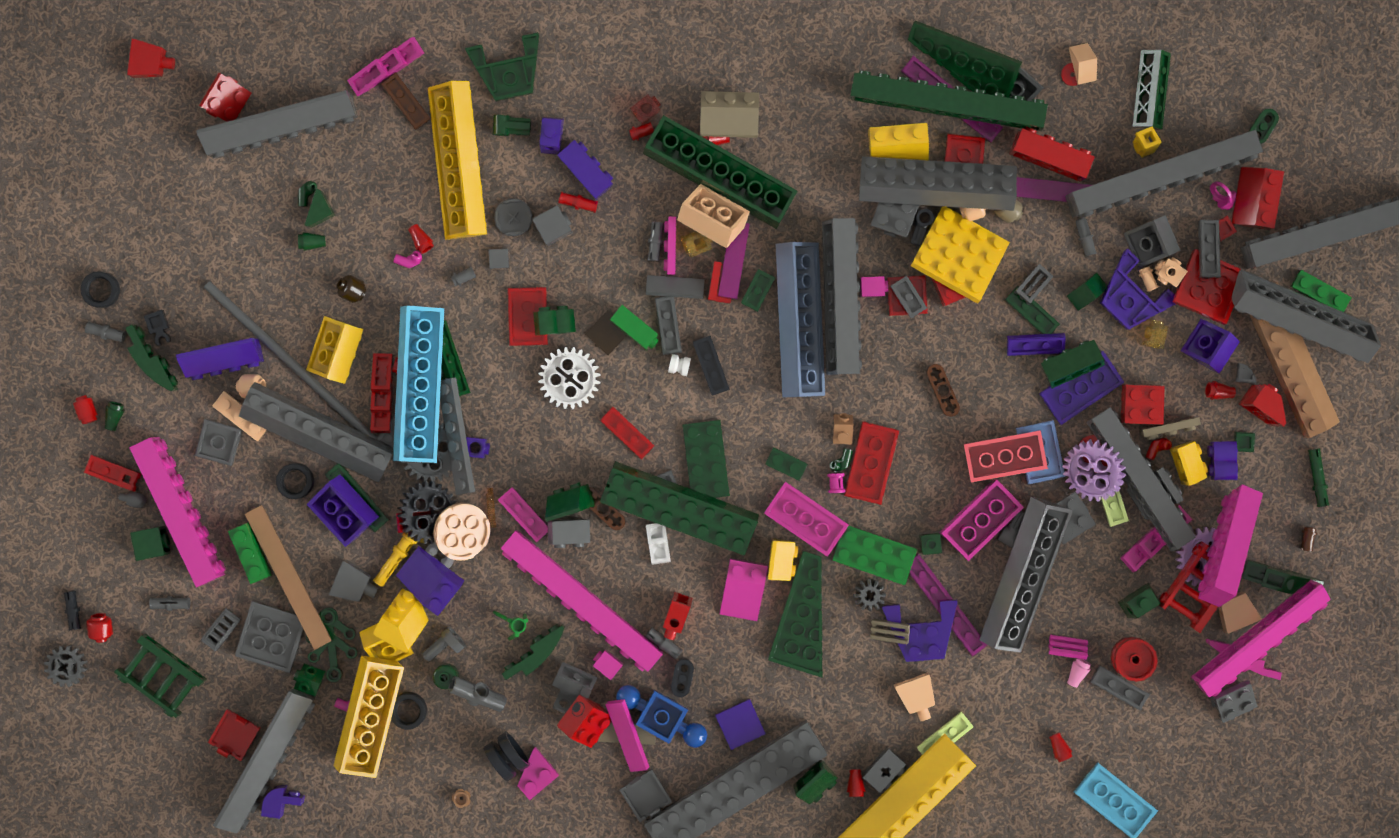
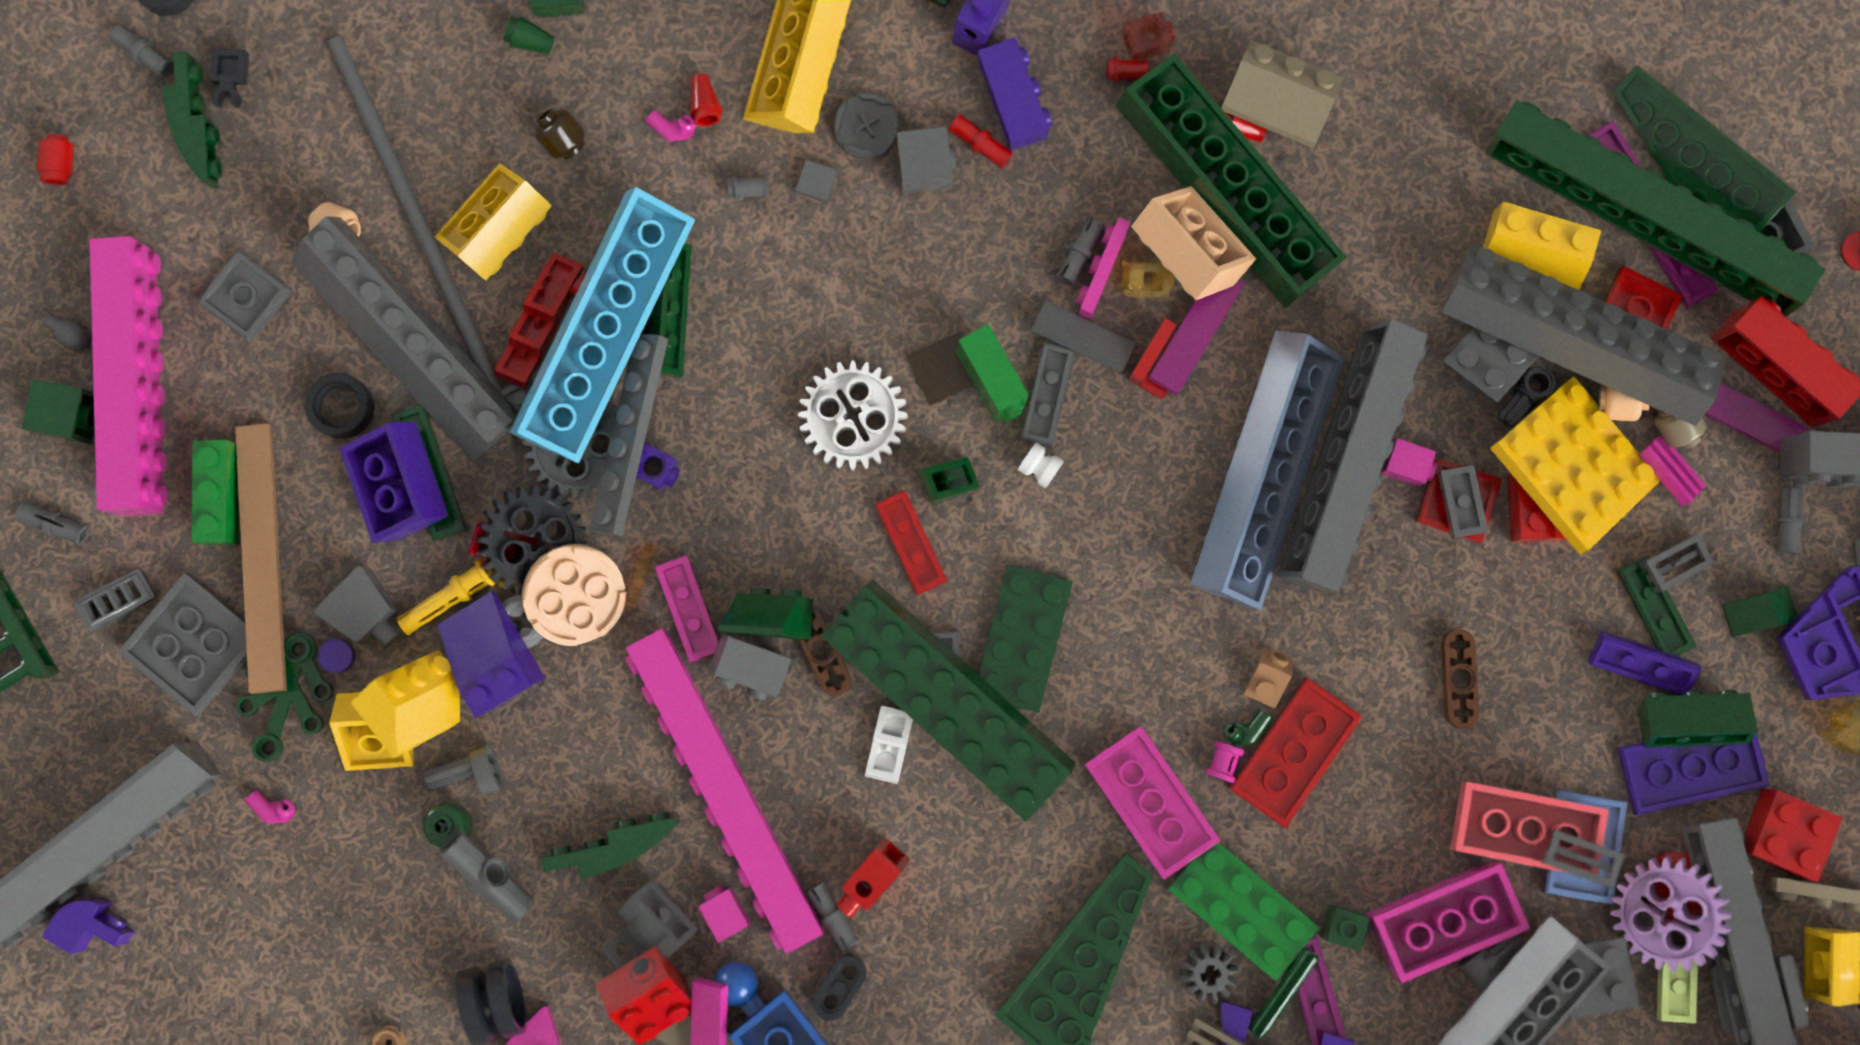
camera: 25 degrees right, 5 degrees down
(112, 472) = (52, 276): red plate -> none
(113, 414) = (95, 186): dark green cone -> none
(220, 358) = (303, 160): dark purple slope -> none
(231, 408) = (282, 243): light nougat plate -> none
(233, 735) = (59, 783): red piece -> none
(308, 679) = (220, 739): dark green brick -> none
(349, 612) = (336, 656): none -> dark purple tile
(368, 716) = (289, 842): yellow brick -> none
(422, 708) = (338, 870): black tyre -> none
(516, 624) = (598, 784): green plant -> none
(521, 305) = (825, 291): red tile -> none
(554, 321) = (865, 313): dark green brick -> none
(634, 392) = (948, 480): none -> dark green slope
(711, 365) = (1092, 487): black plate -> none
(743, 589) = (1001, 879): dark pink slope -> none
(757, 290) = (1216, 395): dark green plate -> none
(781, 560) = (1084, 854): yellow slope -> none
(786, 464) = (1153, 698): dark green plate -> none
(911, 591) = (1283, 993): none -> dark green axle
(1014, 233) = (1672, 471): none -> dark pink tile
(1030, 469) = (1553, 848): none -> dark grey tile
(1158, 445) = (1788, 915): red arm -> none

